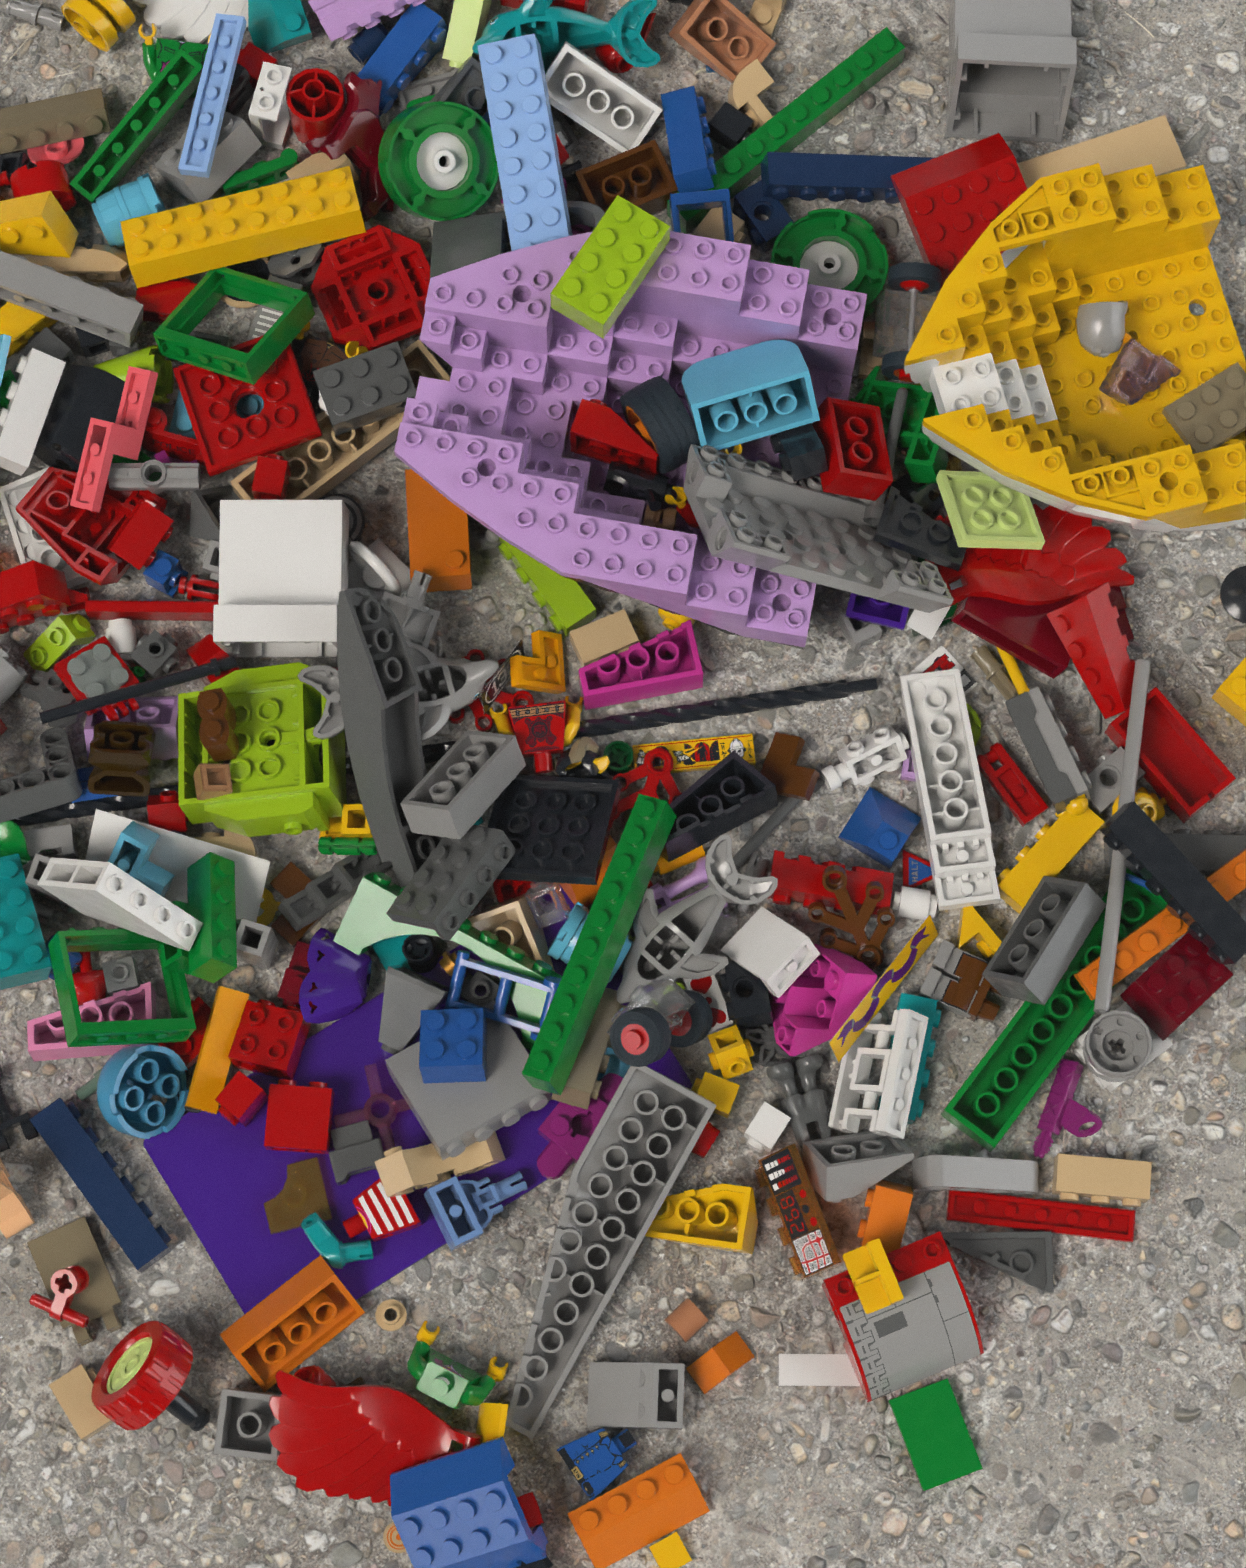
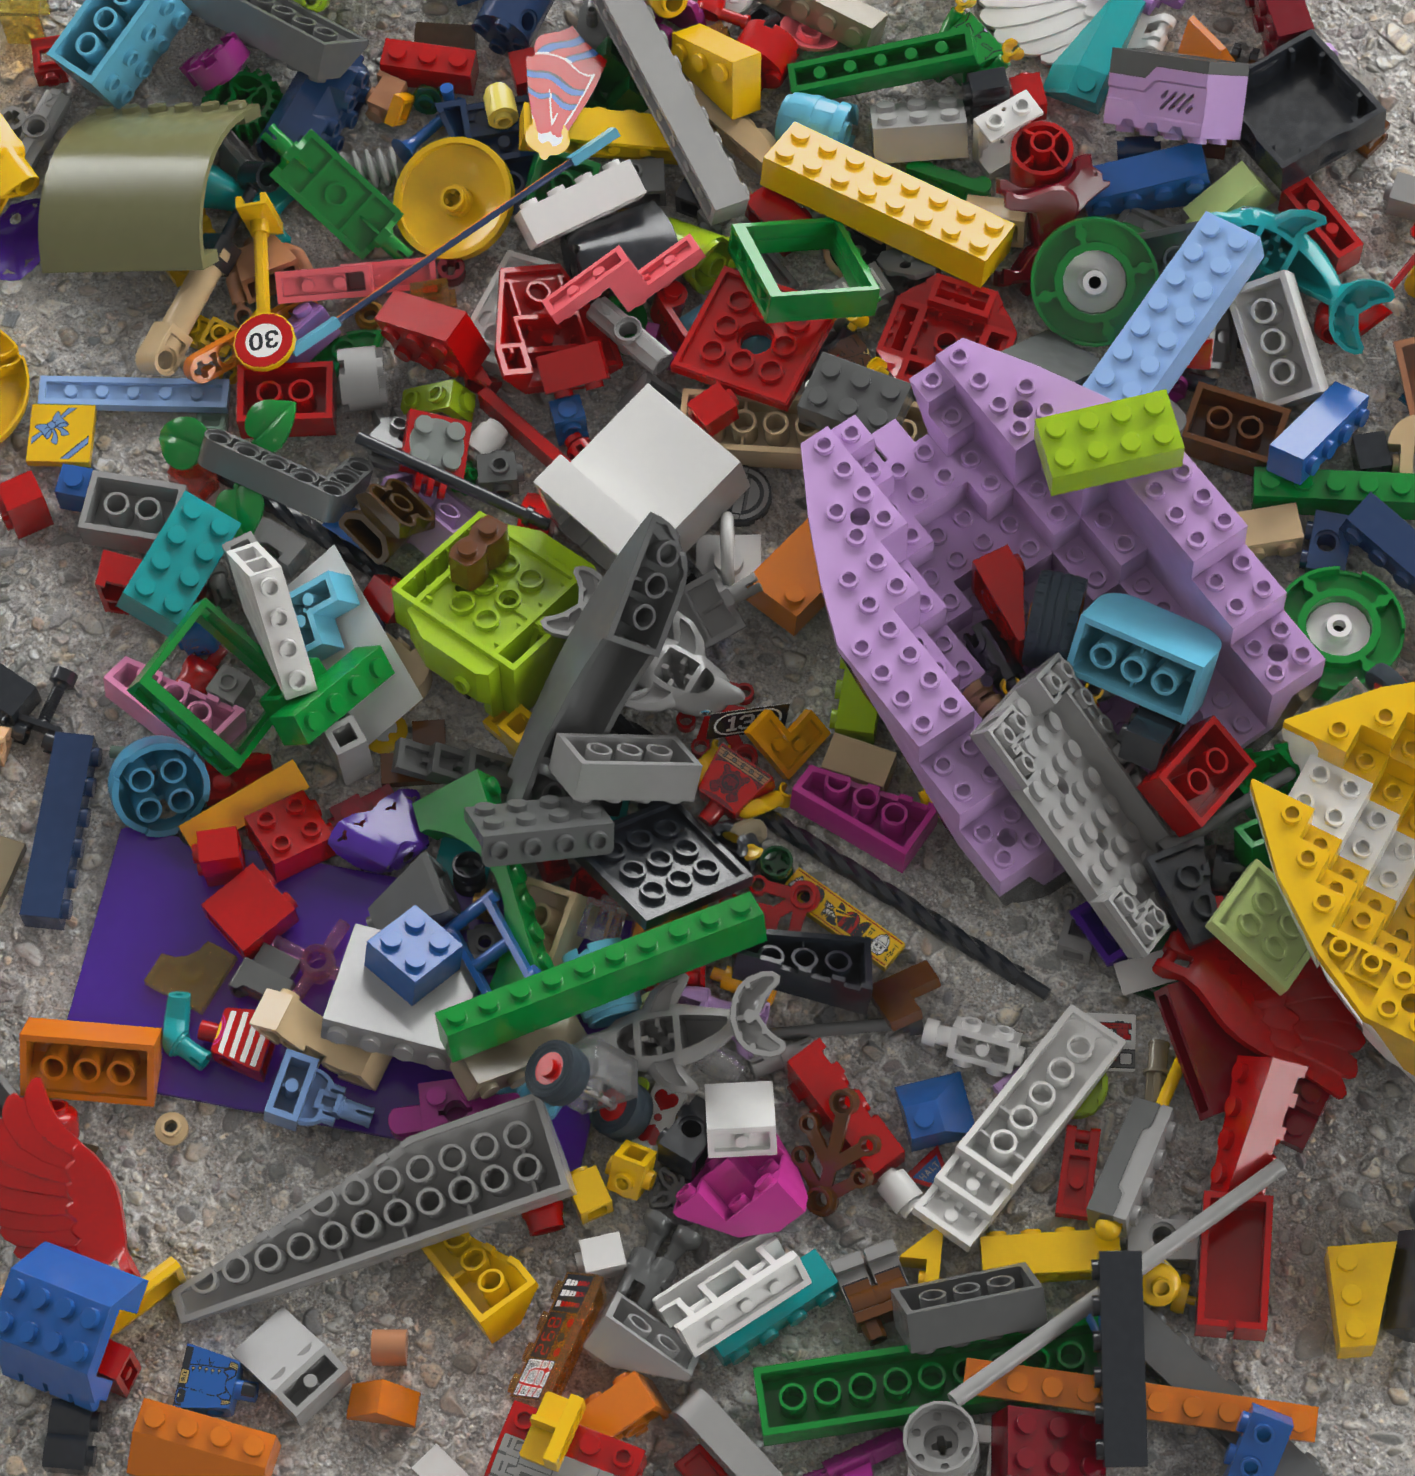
camera: 50 degrees right, 10 degrees down
(212, 95) = (958, 82): light blue plate -> none
(212, 780) = (434, 591): medium nougat slope -> none
(347, 846) = (494, 741): green axle -> none
(448, 1379) = (162, 1214): green torso -> none
(702, 200) = (1278, 486): blue window -> none
(883, 988) = (803, 1231): yellow sticker -> none

